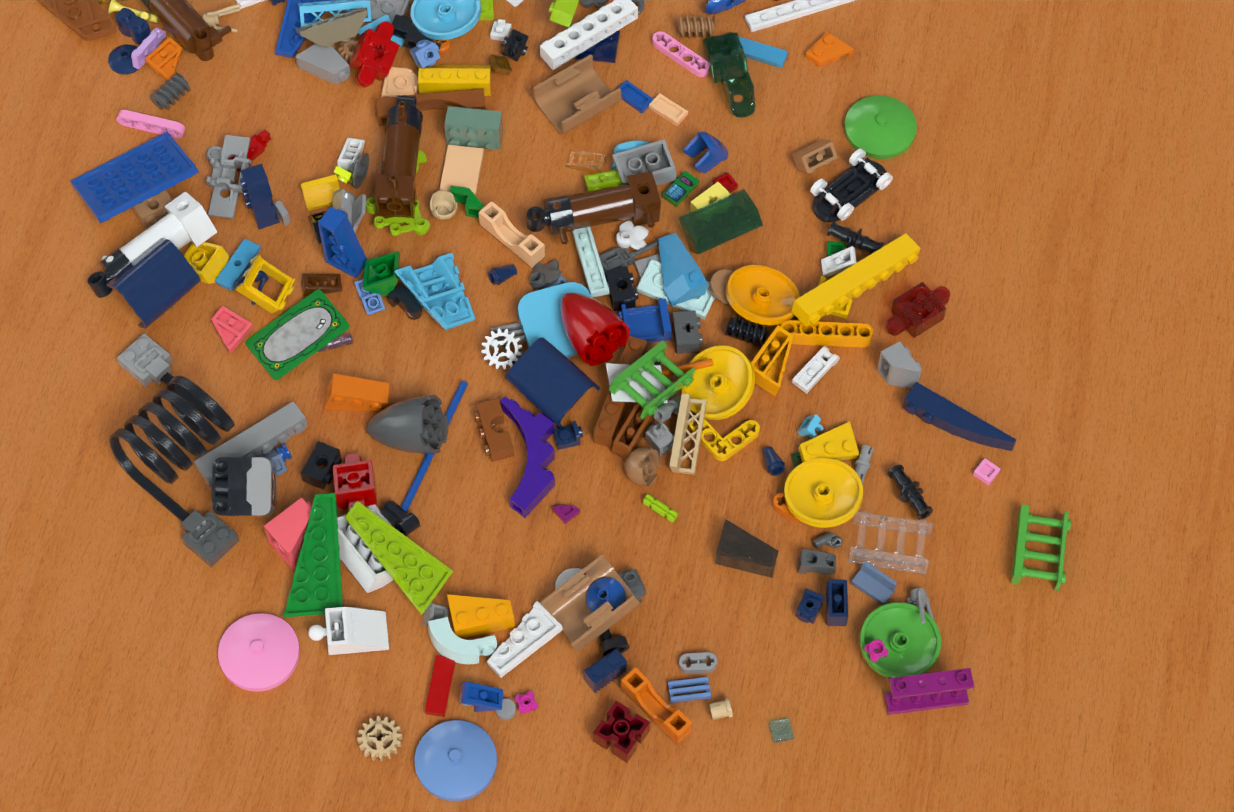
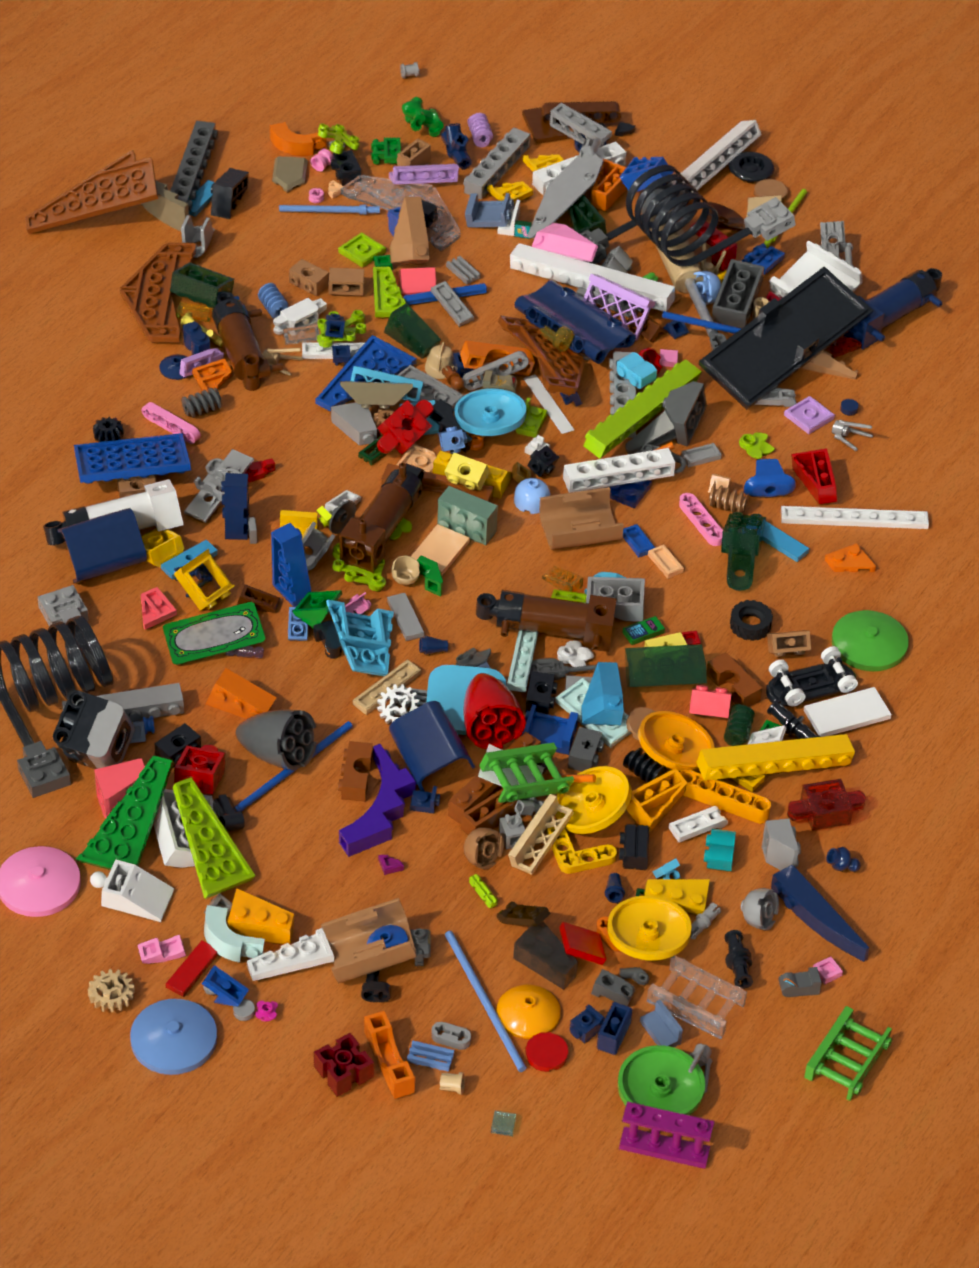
camera: 20 degrees right, 15 degrees down
(95, 153) = (108, 429): none -> black gear
(351, 95) = (374, 456): none -> dark green tile
(403, 680) = (155, 951): none -> bright pink slope
(415, 256) = (358, 604): none -> bright pink hinge
(447, 78) = (459, 464): none -> light yellow brick
(463, 252) = (405, 616): none -> light grey tile
(480, 328) = (401, 675): none -> tan tile
(519, 84) = (528, 494): none -> light blue cylinder
(524, 246) = (449, 602): light nougat arch -> none
(605, 670) = (353, 1007): dark blue brick -> none
(681, 9) = (719, 480): none -> light nougat tile
(709, 521) = (523, 914): none -> dark brown plate
(711, 616) = (485, 1001): none -> medium blue piece
(716, 151) = (683, 604): blue piece -> none
(749, 622) = (527, 1019): none -> light orange dish
(766, 156) = (755, 609): none -> black tyre
(772, 204) = (726, 670): none -> dark orange arch
(772, 242) = (710, 702): none -> coral slope
(772, 529) = (582, 943): none -> red tile
(773, 414) = (635, 847): none -> black brick
(786, 646) = (546, 1051): none -> red tile
(808, 256) = (739, 725): none -> clear green piece
(847, 388) = (720, 850): none -> teal brick
(876, 644) = (630, 1074): dark pink plate -> none
(893, 208) = (847, 712): none -> white tile
(905, 435) = (760, 908): none -> light grey cylinder
(953, 359) = (841, 859): none -> dark blue animal
(971, 494) = (800, 983): none -> dark grey leg

